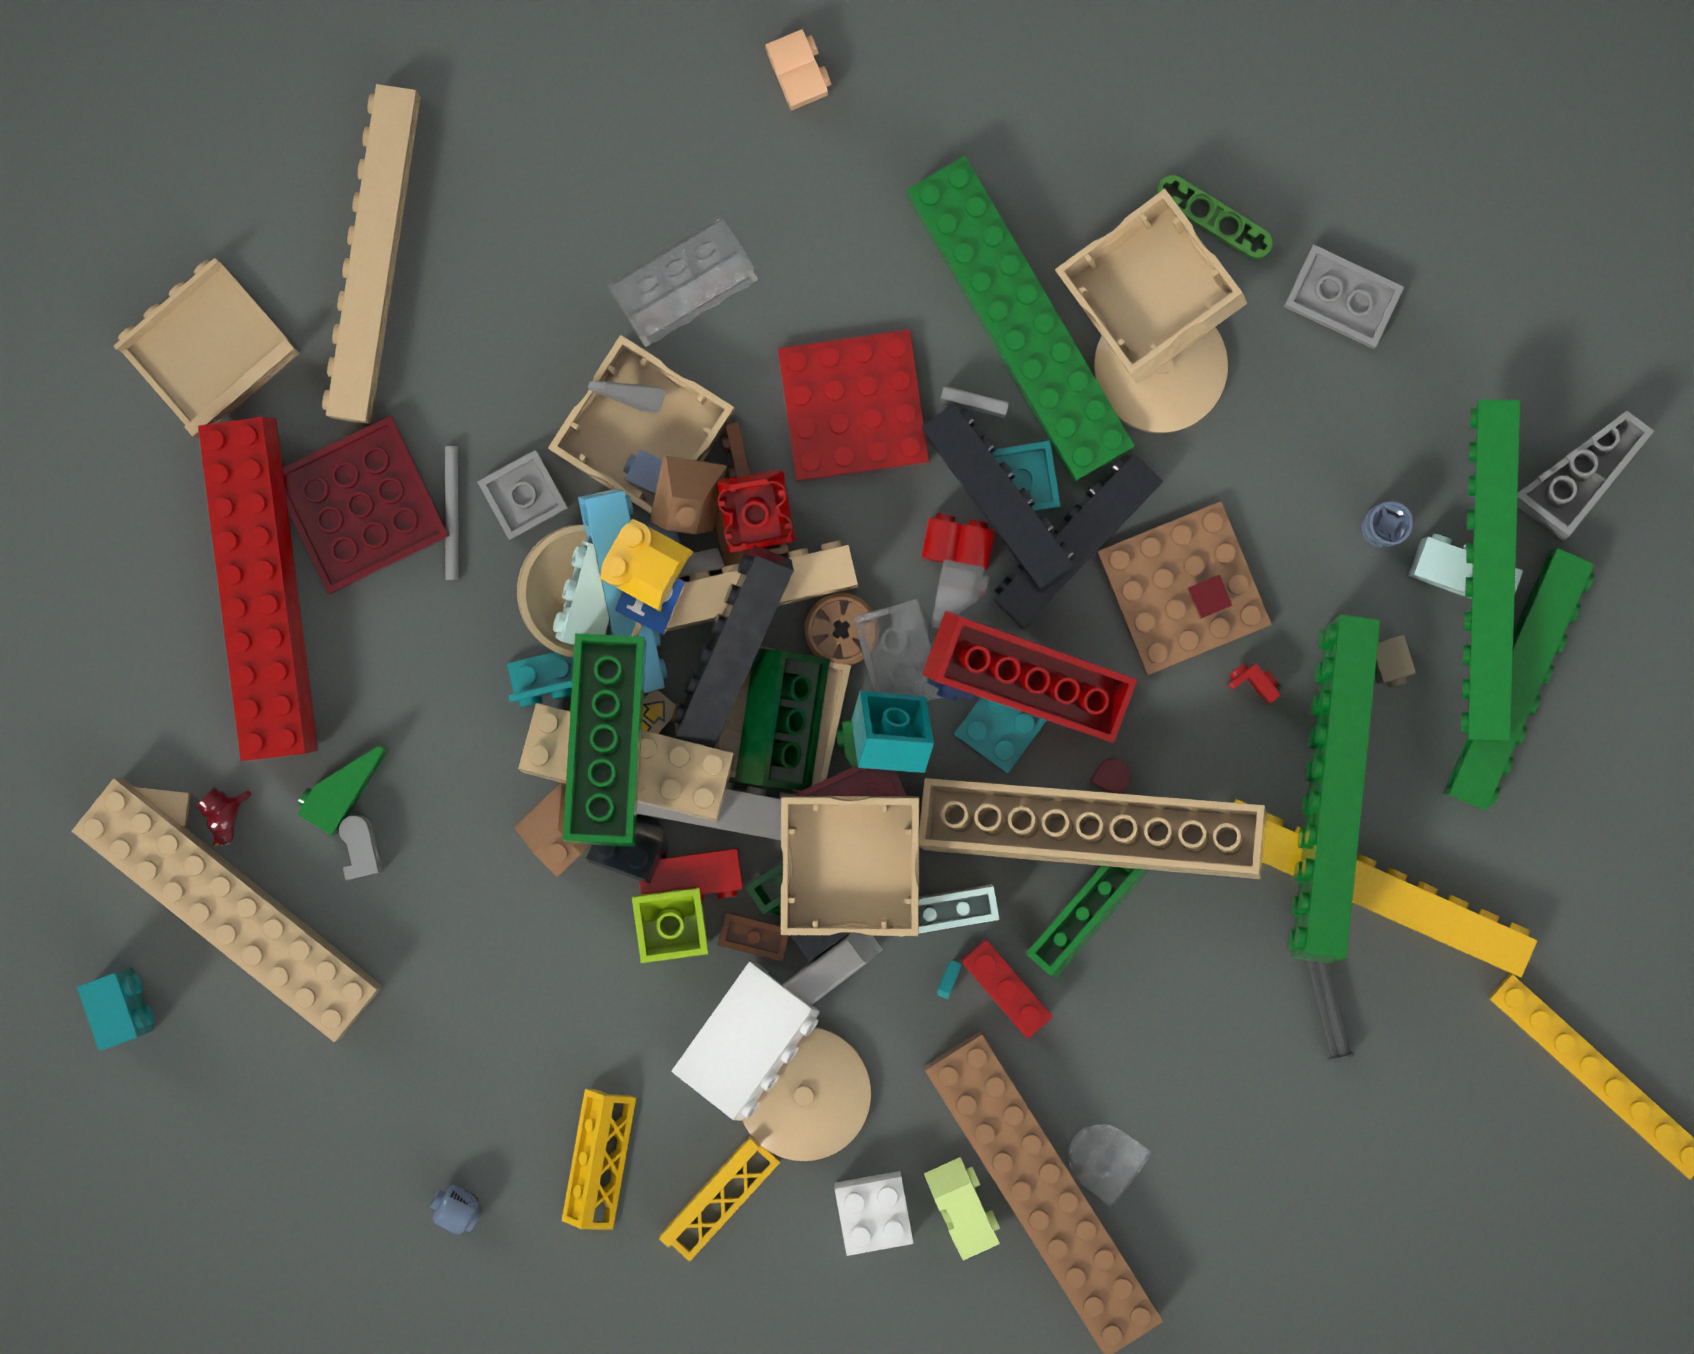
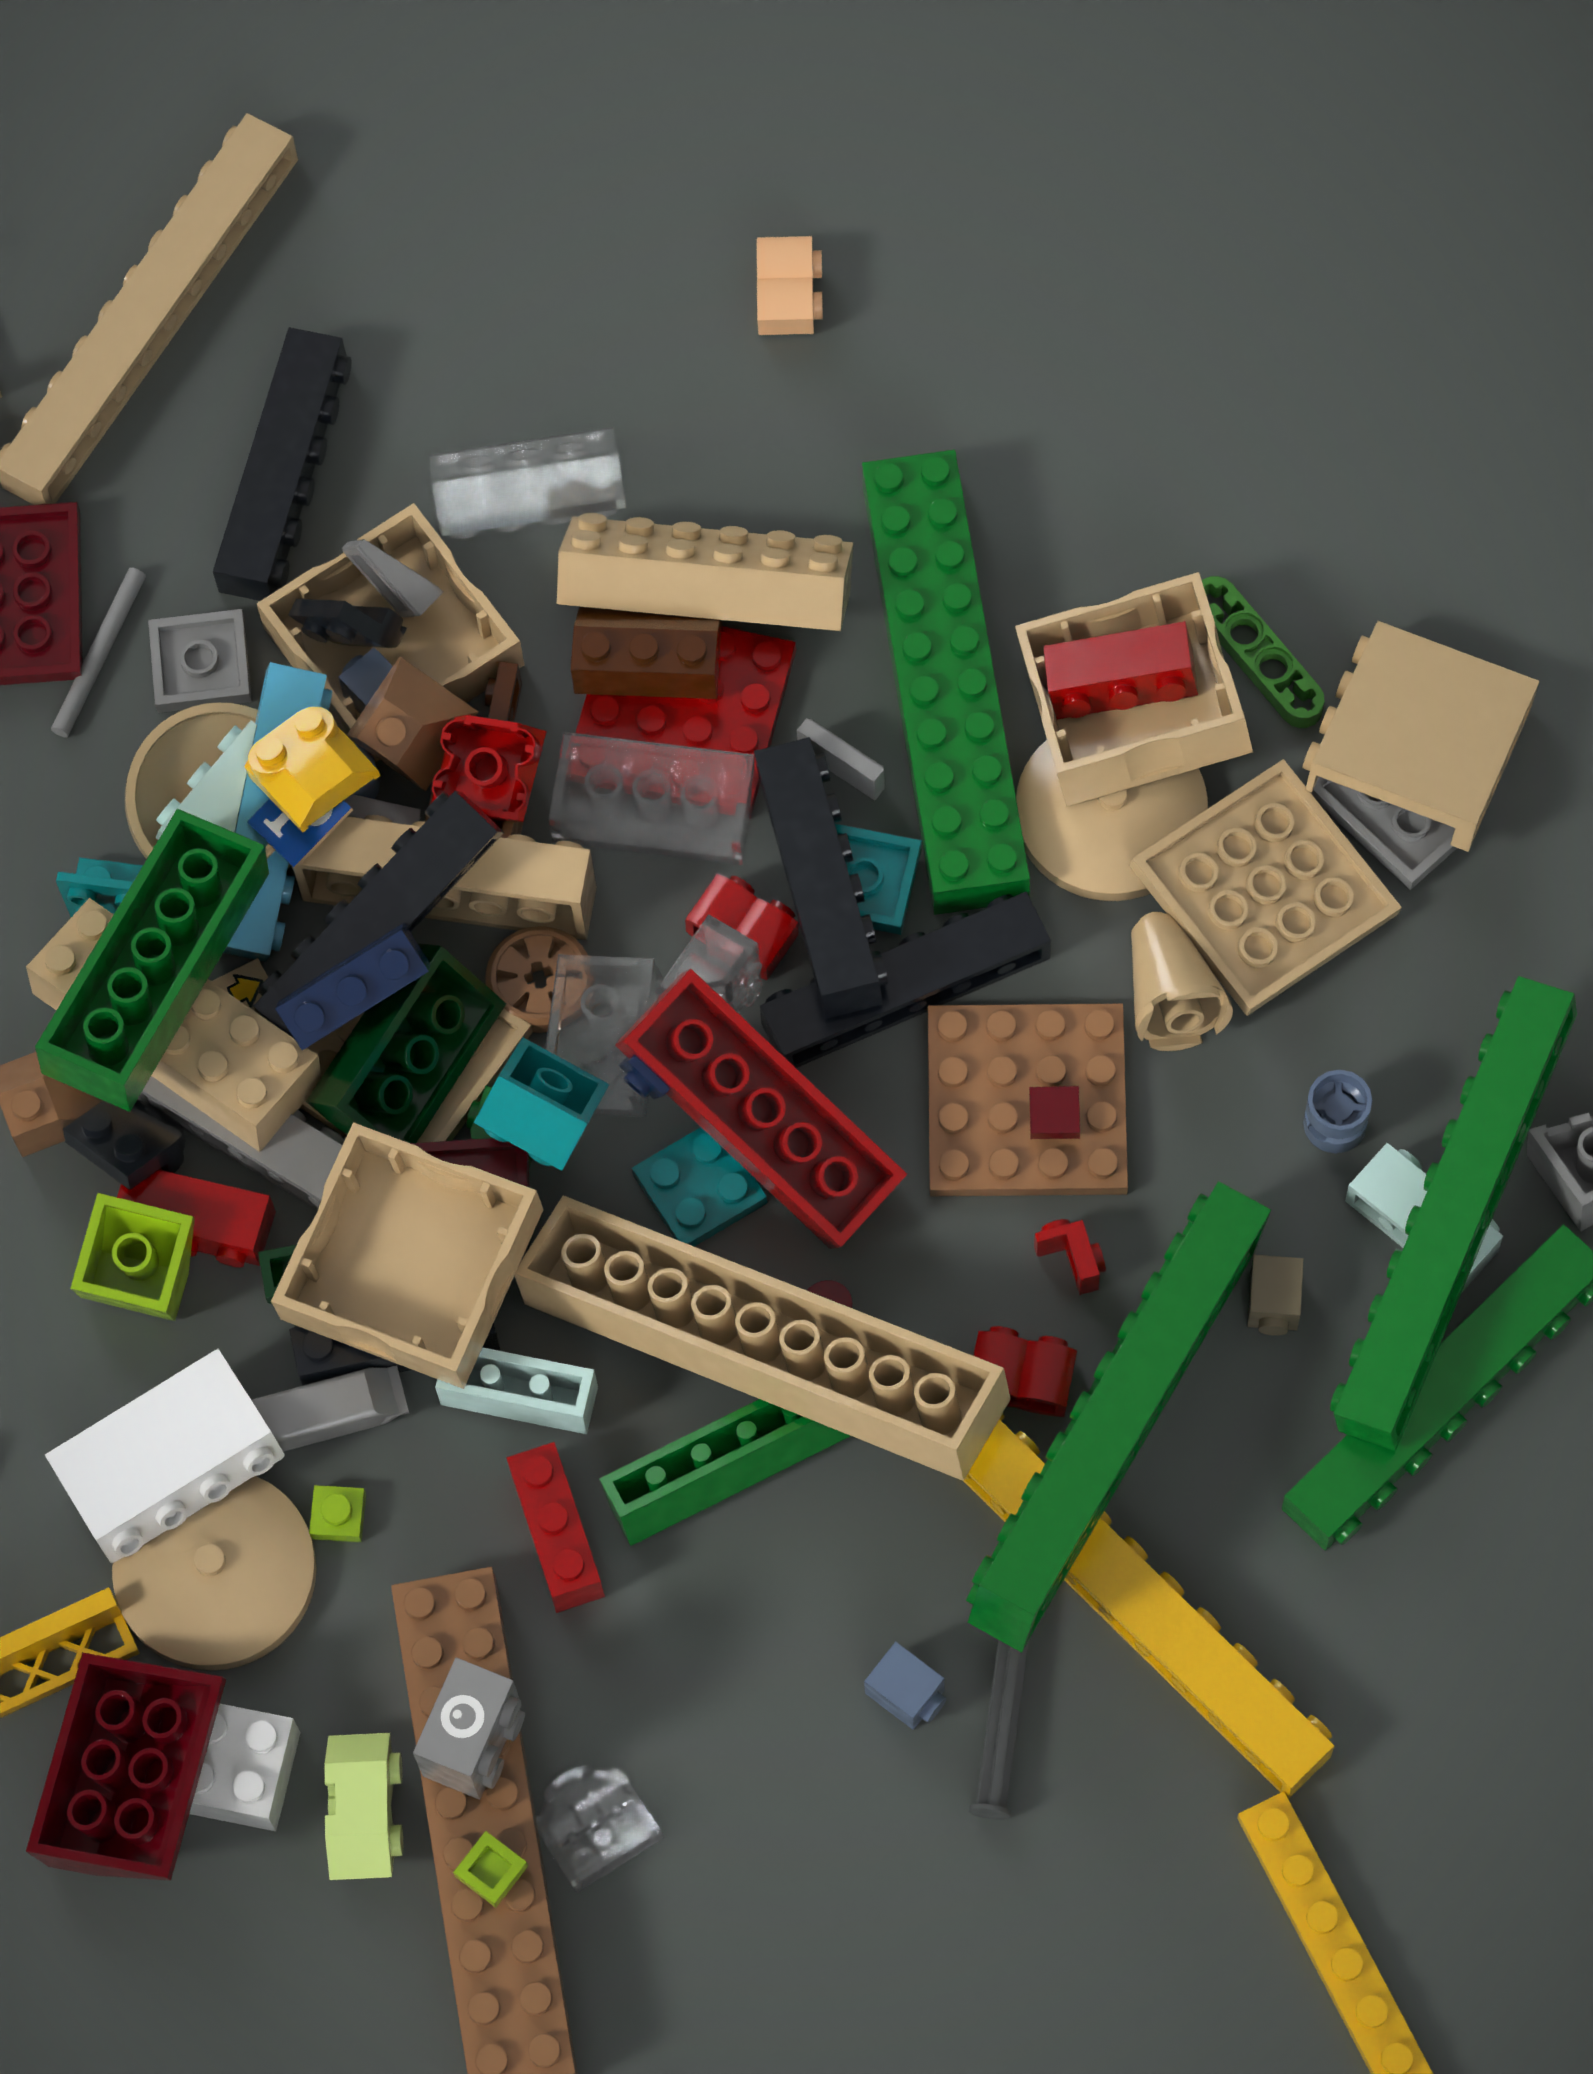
camera: 20 degrees right, 20 degrees down
(514, 333) = (282, 465): none -> black brick
(616, 439) = (348, 624): none -> black slope
(740, 705) = (353, 986): none -> dark blue brick
(753, 936) = (241, 1329): reddish brown plate -> none
(814, 1248) = (125, 1768): none -> dark red slope
(818, 376) = (645, 654): none -> reddish brown slope
(836, 309) = (705, 572): none -> tan brick
(864, 1028) = (337, 1513): none -> lime plate
(865, 480) = (652, 798): none -> clear slope
(948, 979) = (481, 1487): teal tile -> none
(1021, 1155) = (469, 1729): none -> light grey brick
(1066, 1227) = (490, 1869): none -> lime plate
(1138, 277) = (1120, 670): none -> red brick
(1249, 477) = (1173, 987): none -> tan cone
(1253, 773) = (1035, 1371): none -> red brick
(1261, 1001) = (906, 1687): none -> sand blue brick
(1283, 387) = (1265, 886): none -> tan plate
(1346, 239) = (1422, 728): none -> tan panel

